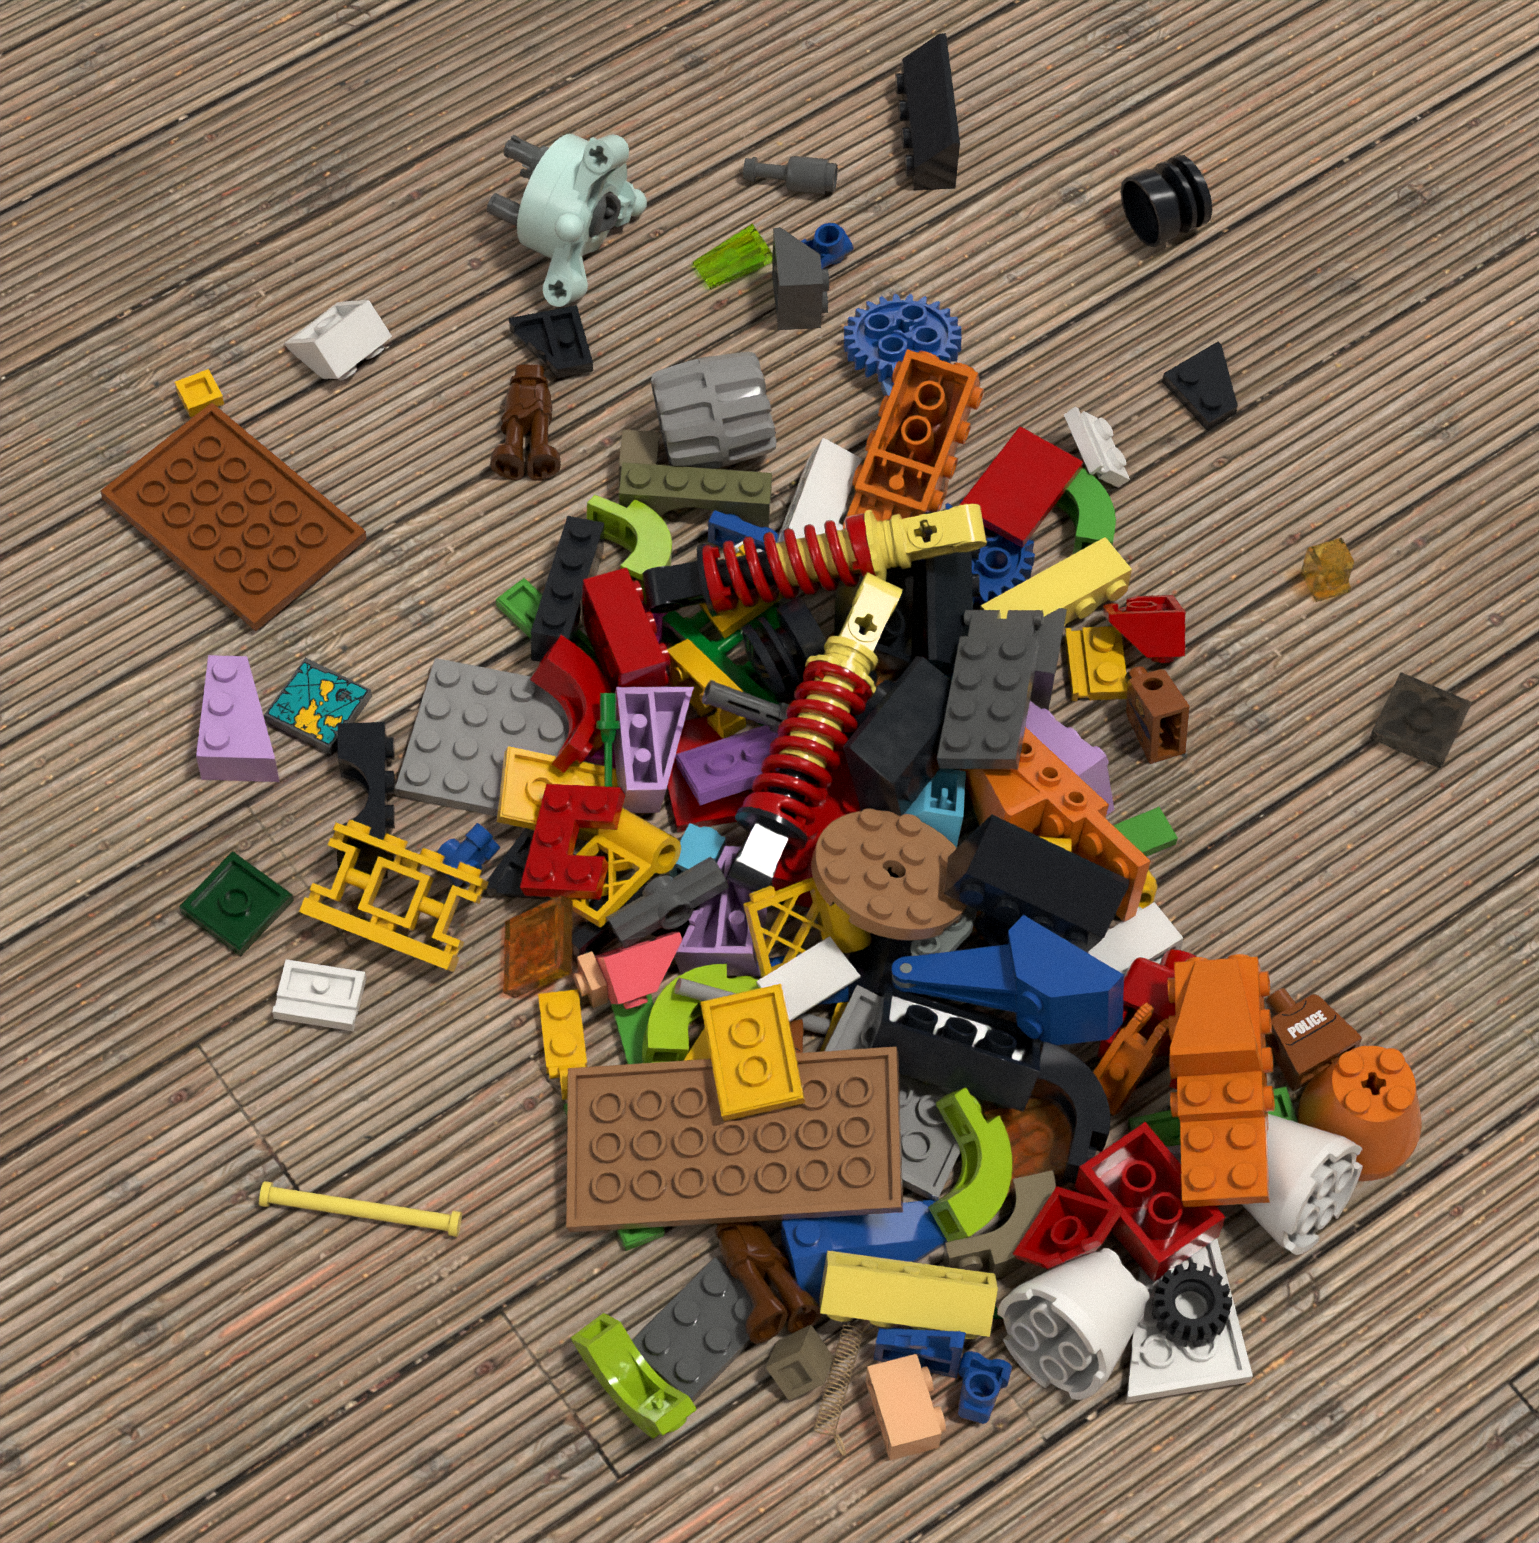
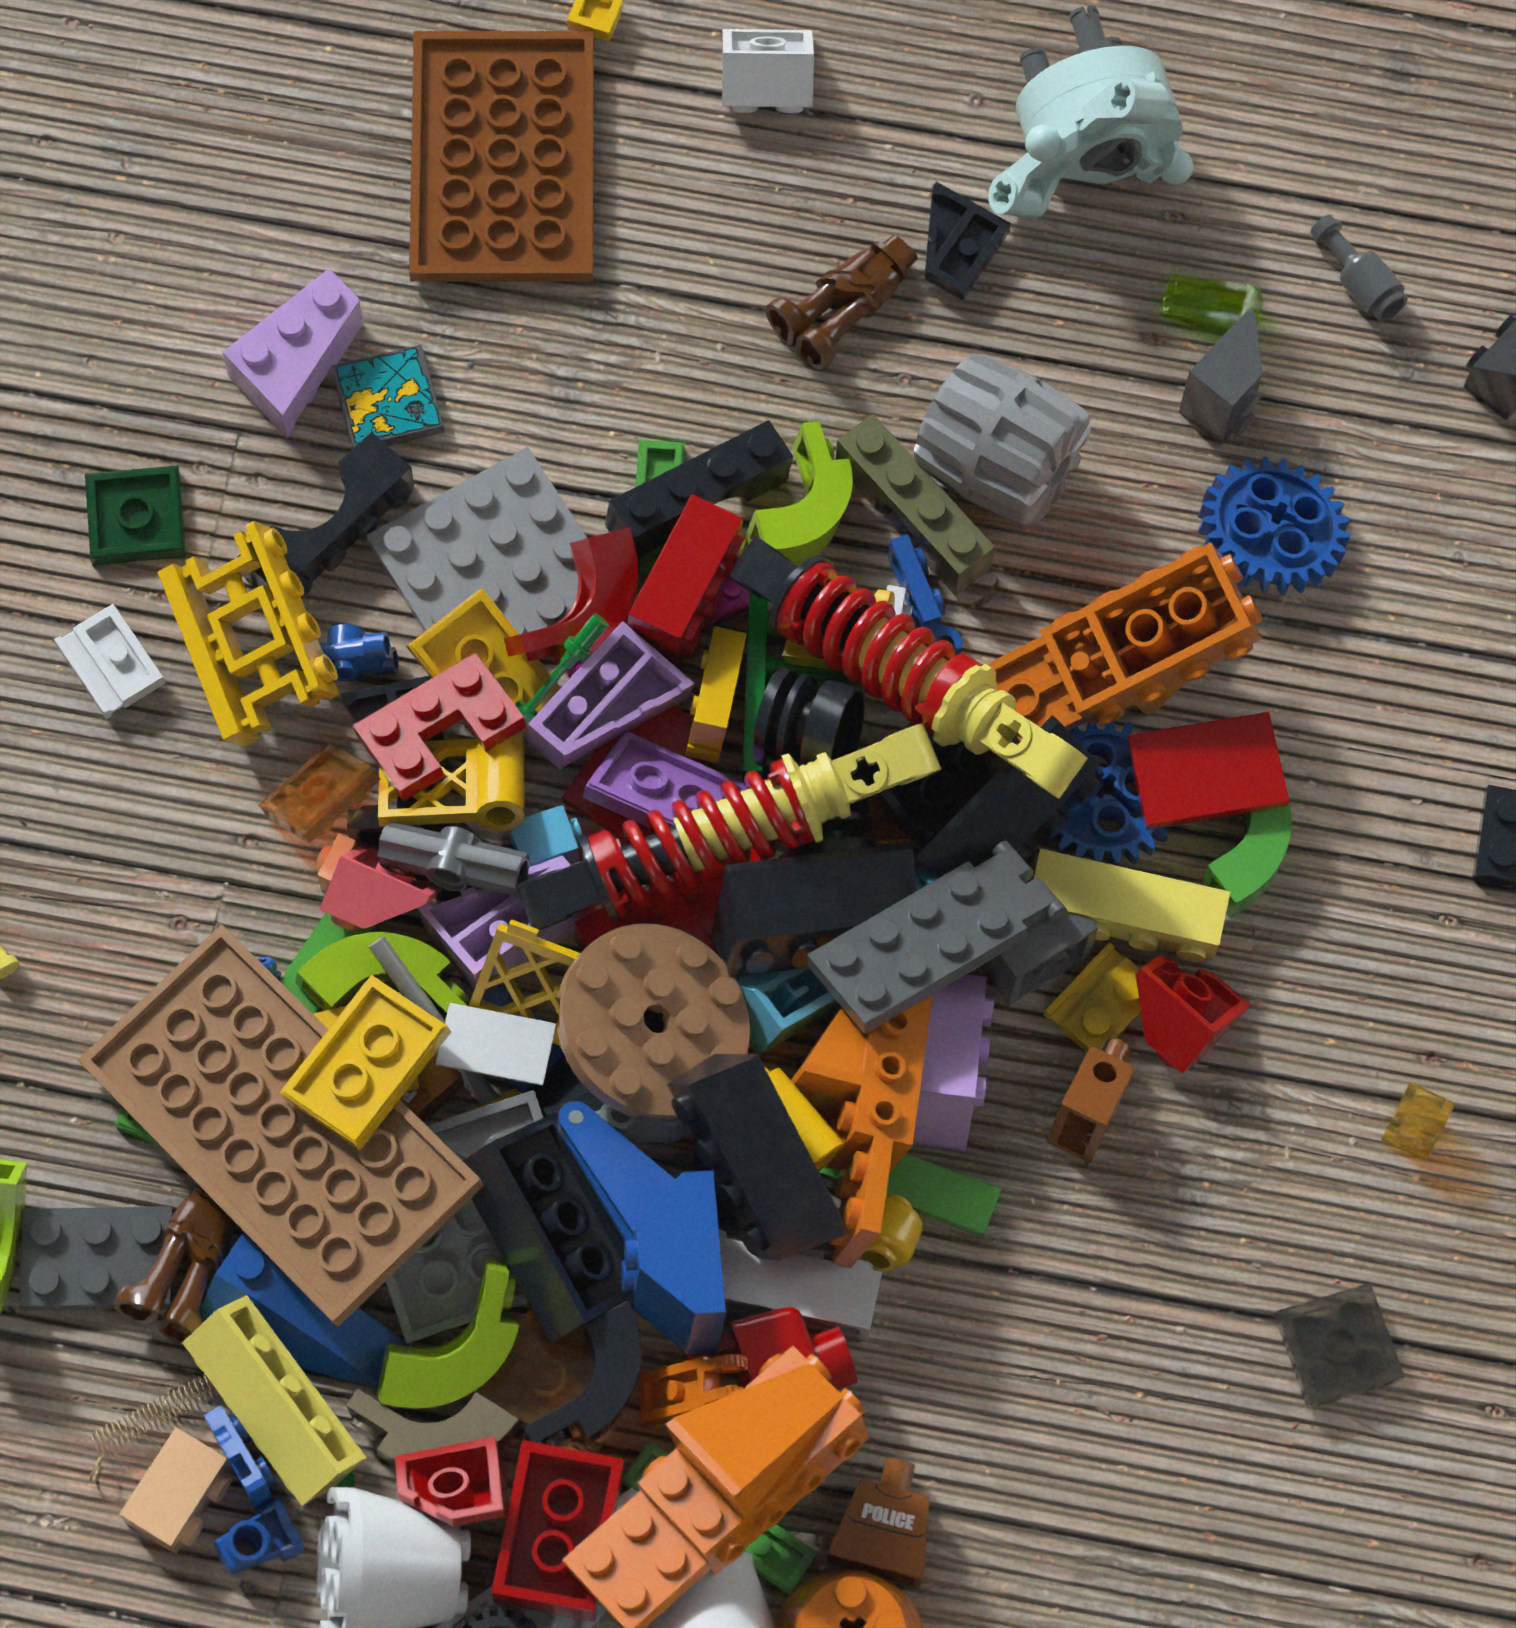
camera: 45 degrees right, 10 degrees up
(562, 1034) = (266, 890): yellow hinge -> none
(638, 448) = (904, 414): dark tan panel -> none
(745, 705) = (709, 742): dark grey pin -> none
(800, 1362) = (138, 1366): dark tan panel -> none
(822, 490) = (1011, 611): white brick -> none
(830, 243) = (1300, 370): blue plate -> none
(1097, 447) = (1333, 798): white plate -> none

